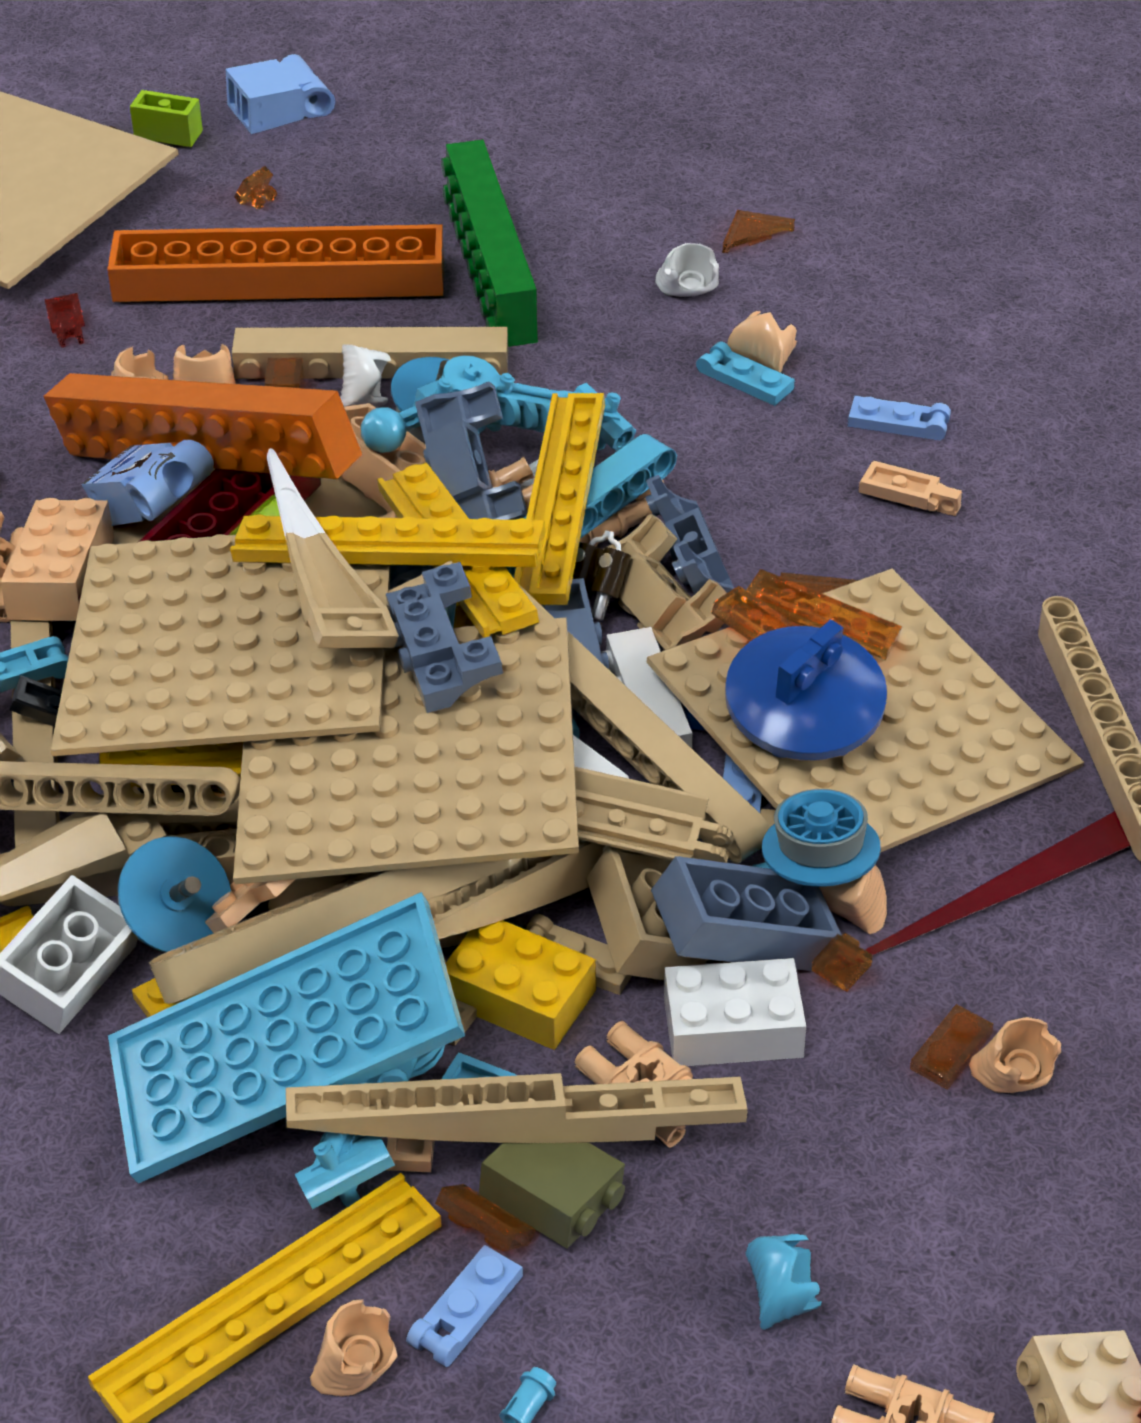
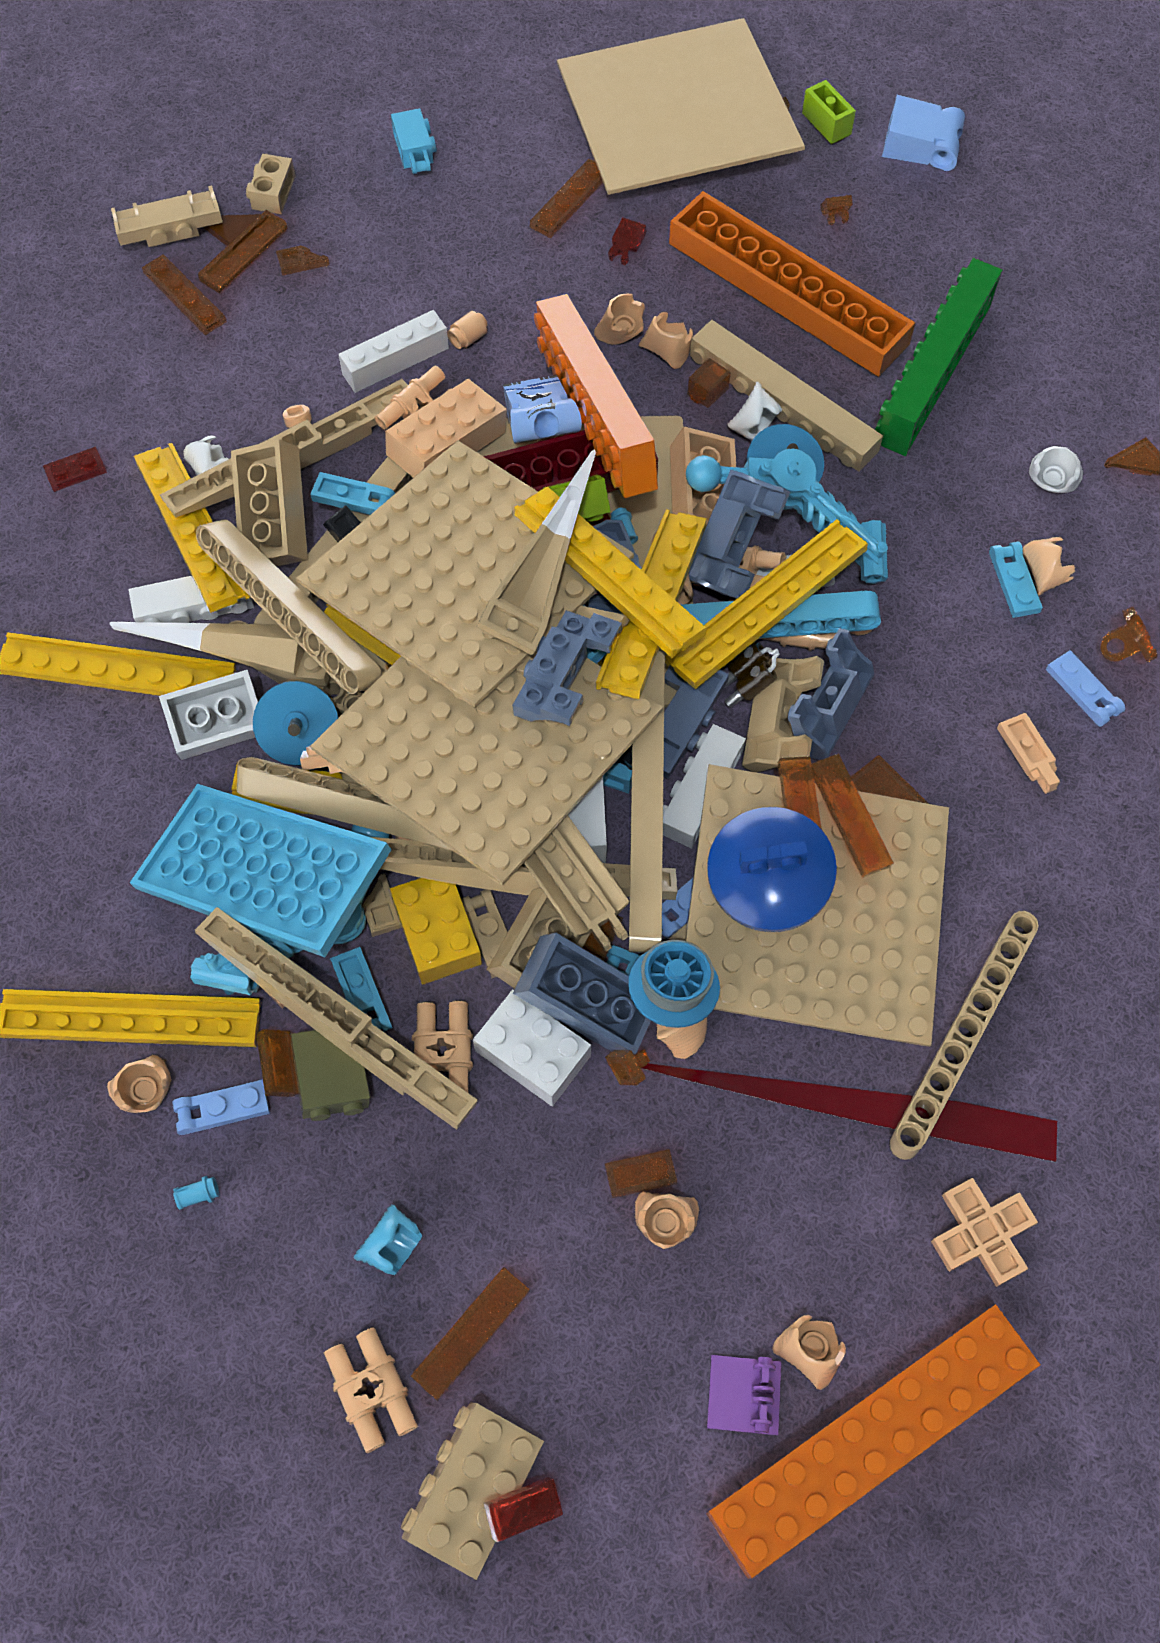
camera: 40 degrees right, 20 degrees up
(901, 346) = (1134, 637): none -> clear orange tile
(951, 1299) = (470, 1334): none -> clear orange plate

